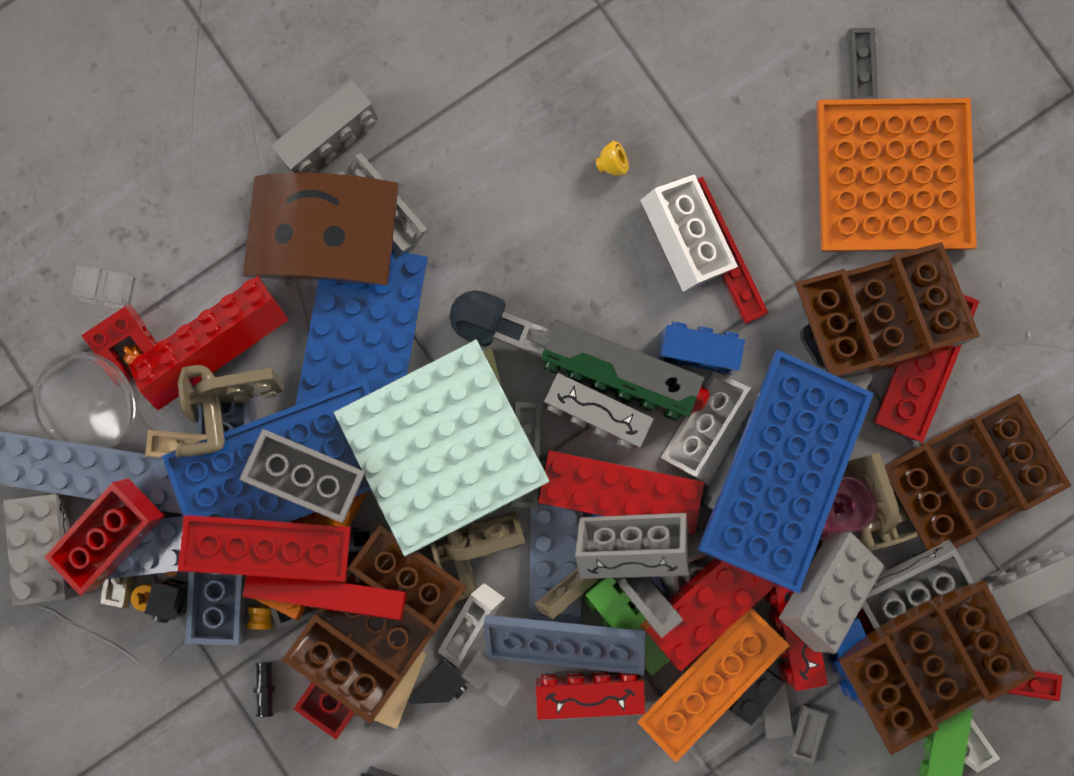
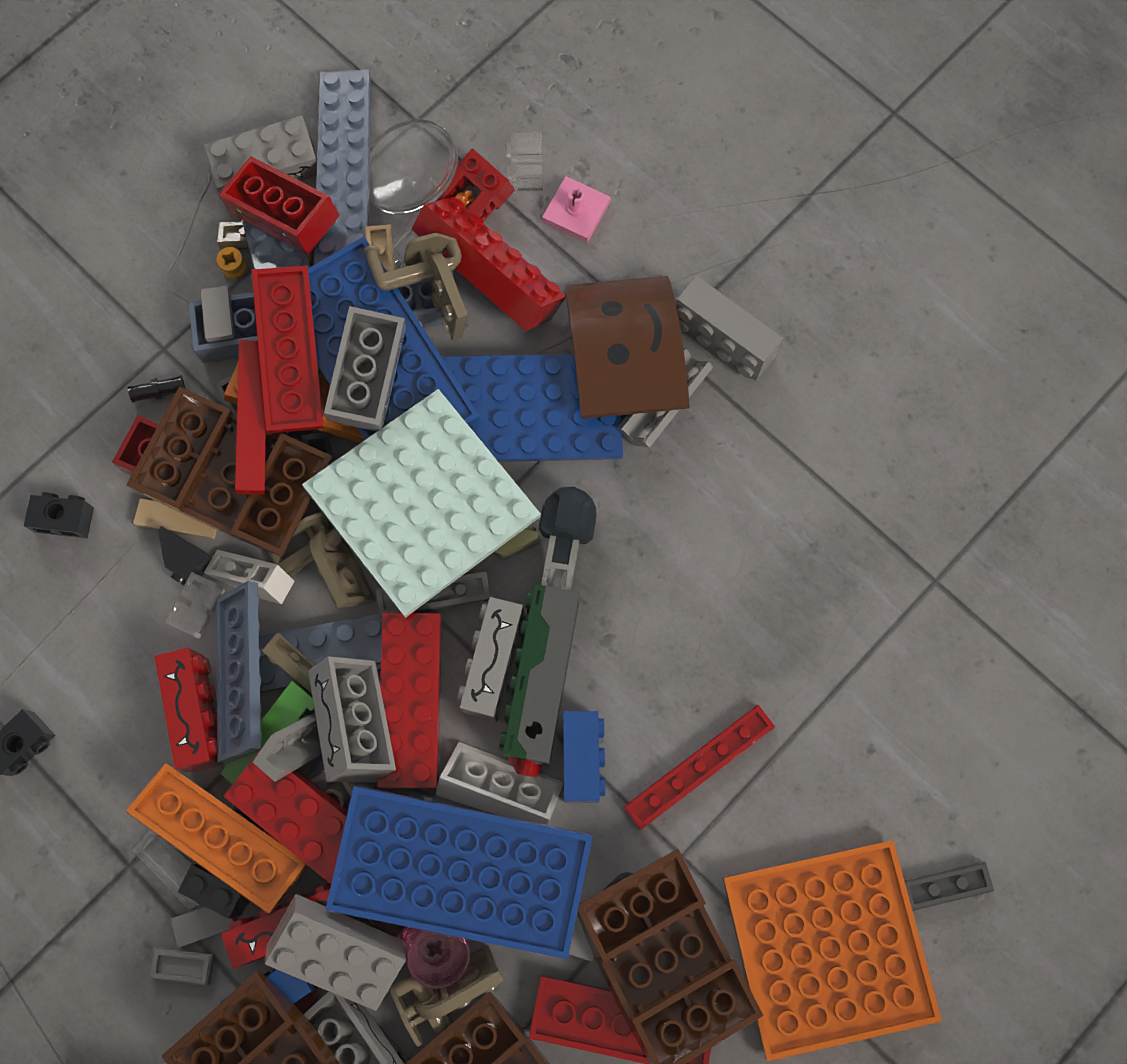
camera: 80 degrees right, 10 degrees down
(164, 248) = (576, 209): none -> bright pink tile
(167, 600) = (230, 273): black brick -> none
(205, 615) = (217, 314): none -> light grey tile
(259, 618) = (224, 368): light orange wheel -> none
(613, 160) = (770, 626): yellow brick -> none
(688, 232) = (708, 722): white slope -> none

